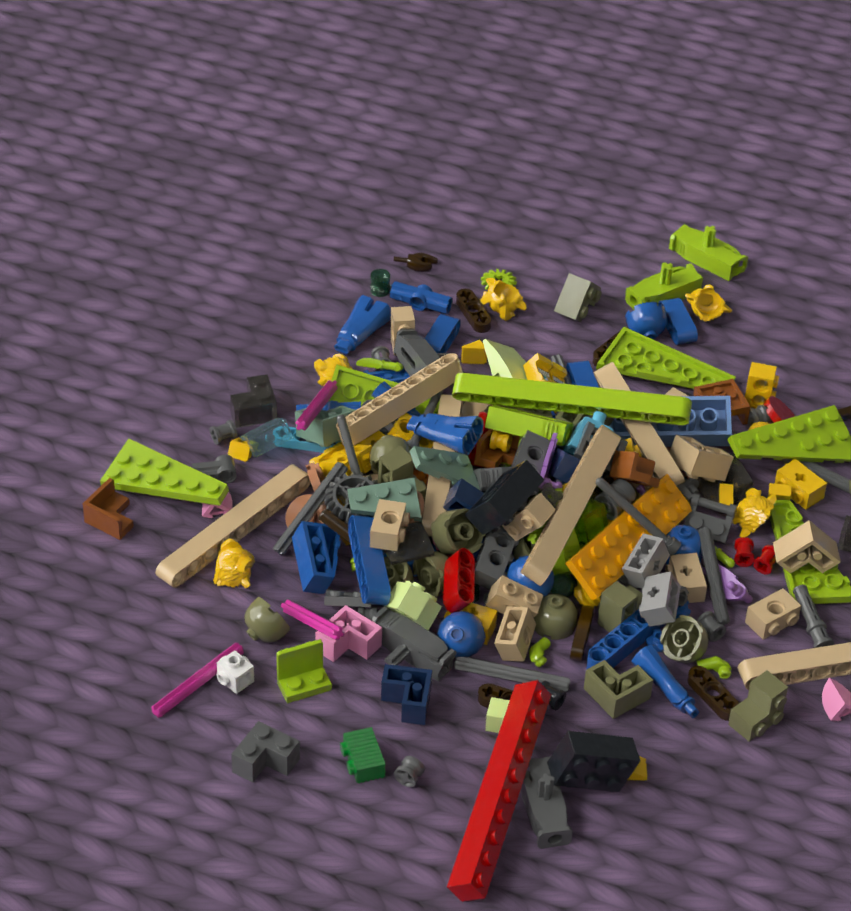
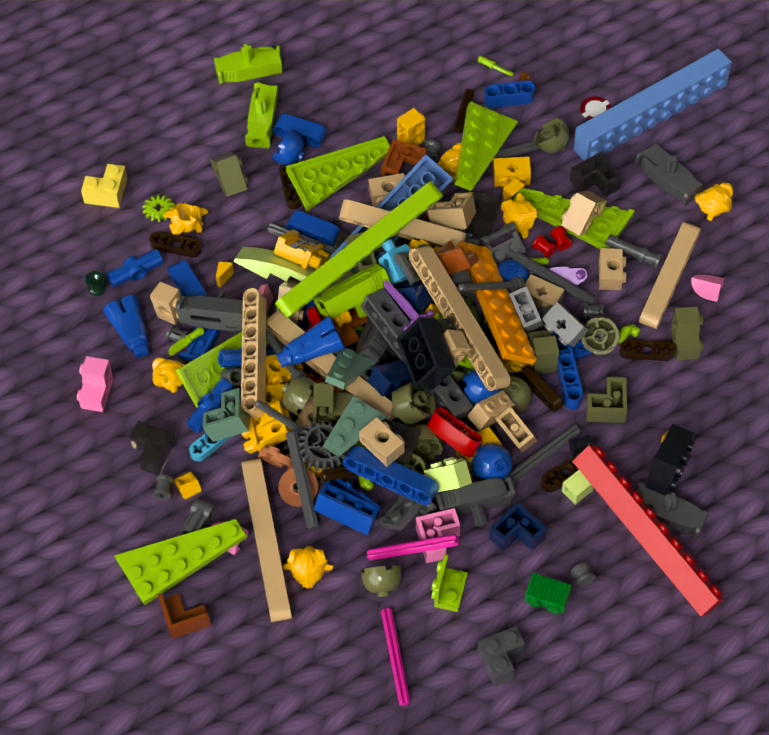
camera: 50 degrees left, 15 degrees up
(235, 671) = (412, 627): white brick -> none
(267, 436) = (197, 461): clear light blue panel -> none
(282, 335) = (96, 383): none -> bright pink brick
(316, 405) = (214, 409): dark pink axle -> none
(418, 262) = (90, 246): dark brown hand -> none
(482, 239) = (106, 190): none -> light yellow brick
(537, 650) = (536, 428): lime arm -> none
(654, 666) = (606, 368): blue piece -> none
(707, 303) = (302, 102): yellow hair -> none
(726, 494) = (489, 221): yellow piece -> none
(777, 409) = (444, 136): red tile -> none

